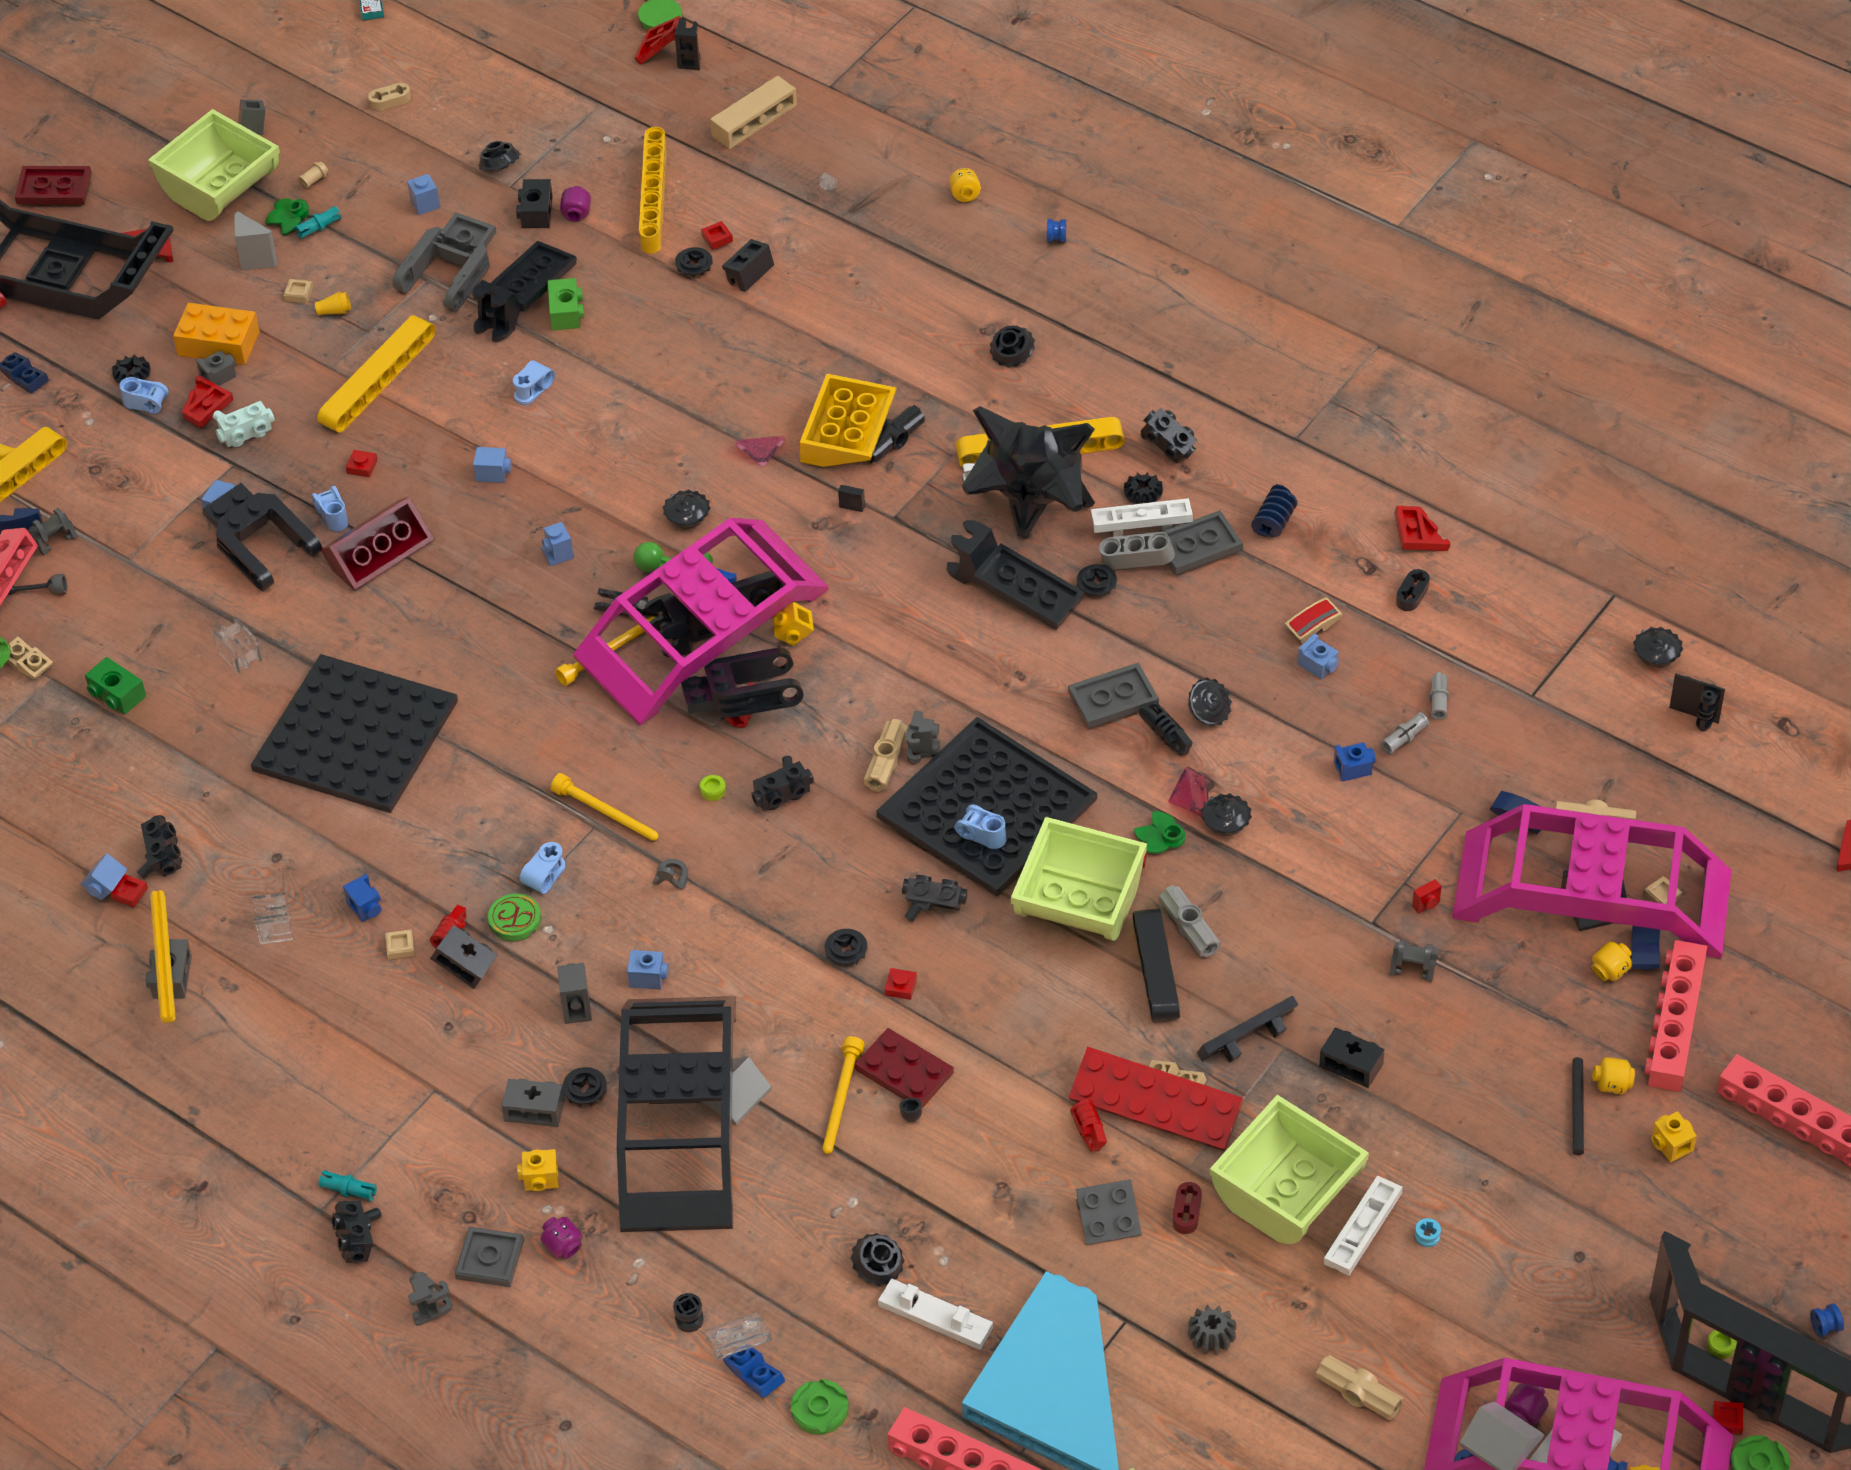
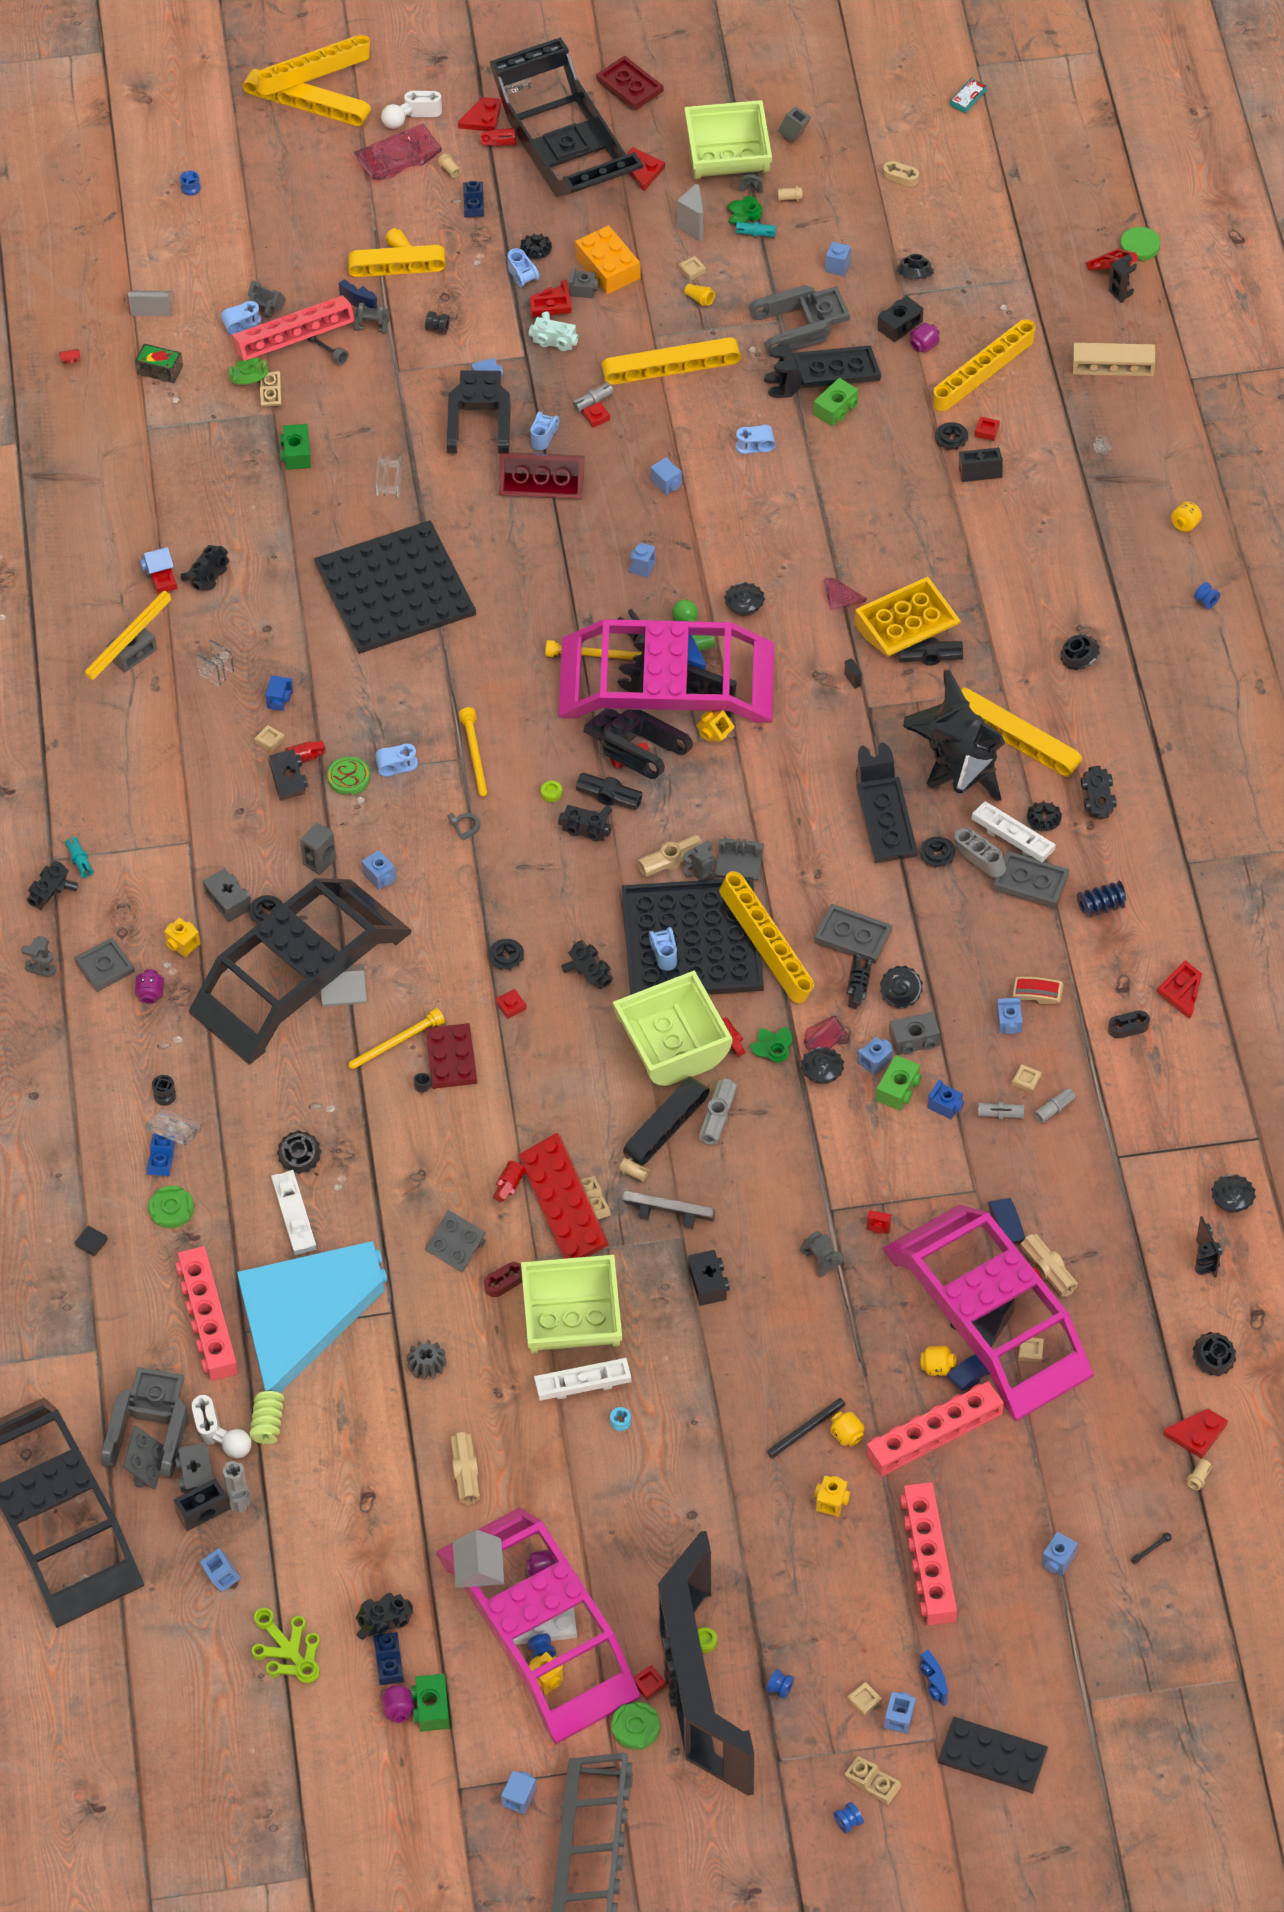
camera: 45 degrees right, 5 degrees up
(121, 491) = (437, 322): none -> black wheel
(261, 187) = (751, 178): none -> dark grey piece
(342, 450) = (593, 397): none -> light grey pin
(765, 746) = (609, 791): none -> black piece
(946, 710) = (739, 857): none -> dark grey hinge
(1055, 750) = (766, 937): none -> yellow beam
(1179, 1026) = (633, 1169): none -> tan pin
(1254, 767) = (875, 1055): none -> medium blue brick
(1264, 730) = (923, 1025): none -> dark grey brick
(1301, 778) = (903, 1072): none -> bright green brick
(1390, 694) = (1026, 1078): none -> tan tile
(1799, 775) = (1214, 1353): none -> black piece

